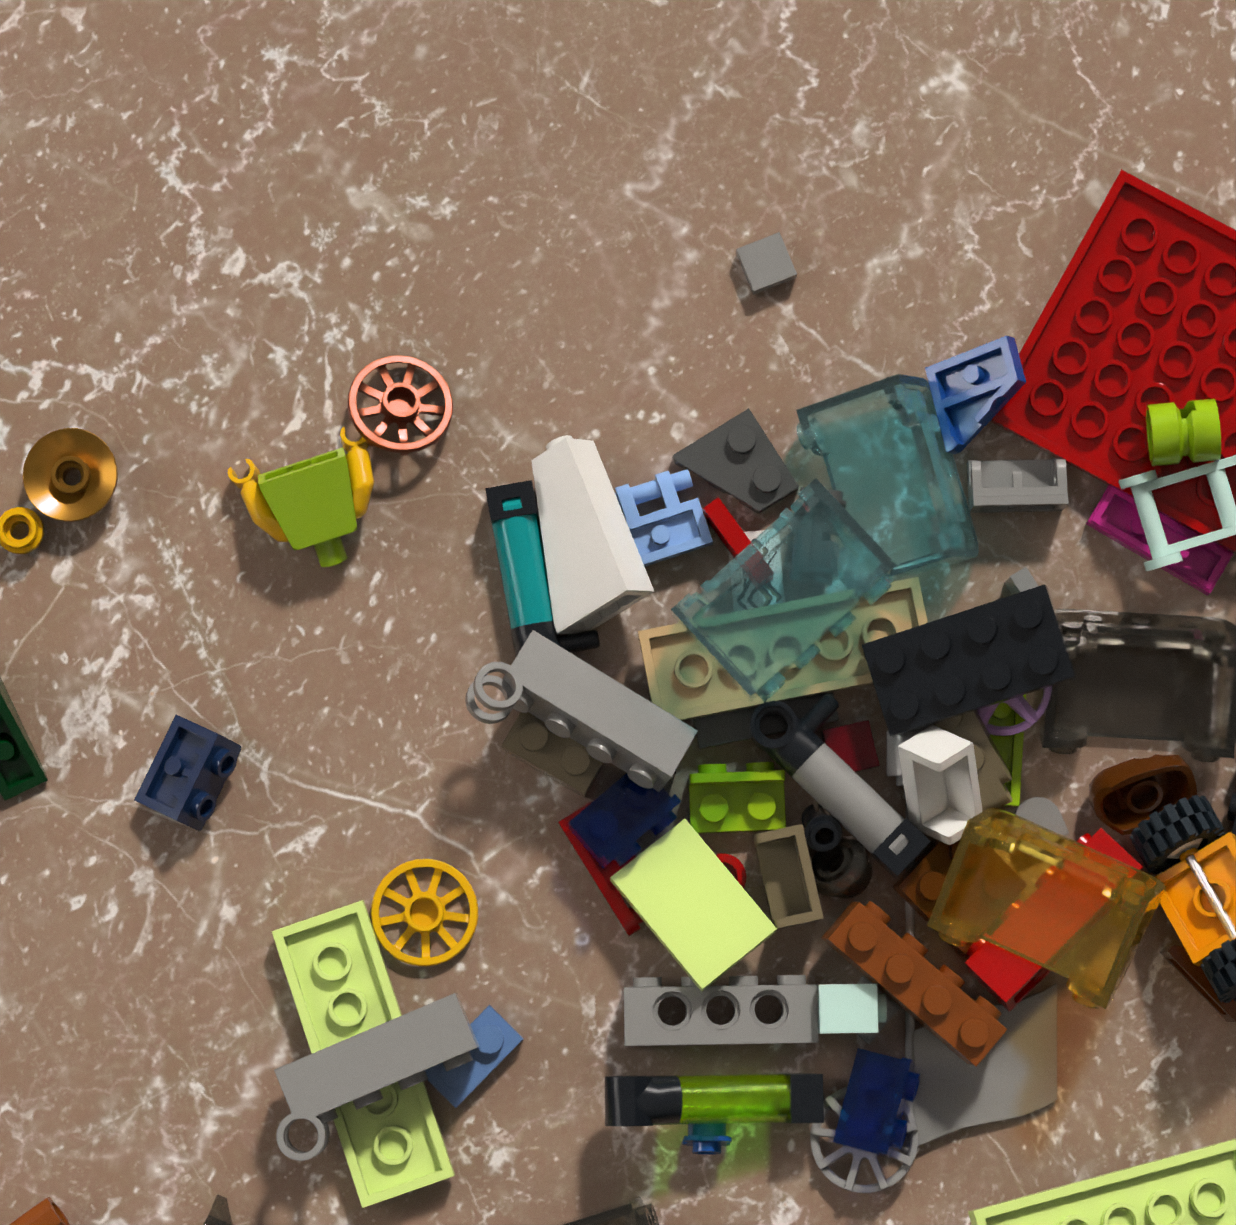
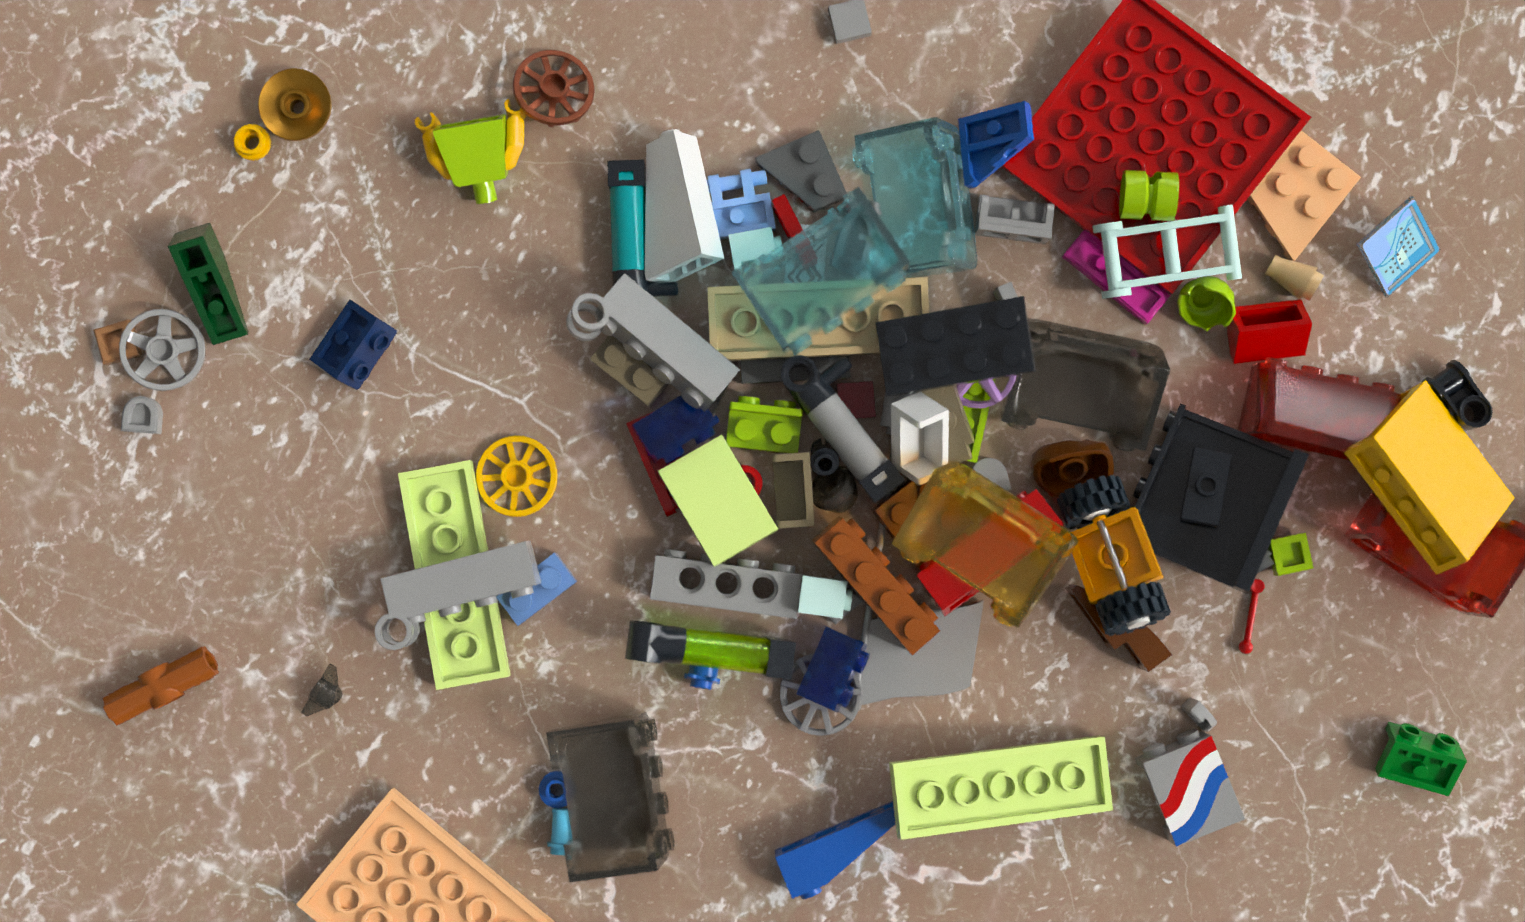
camera: 10 degrees right, 5 degrees up
(687, 571) = (752, 244): none -> light aqua brick

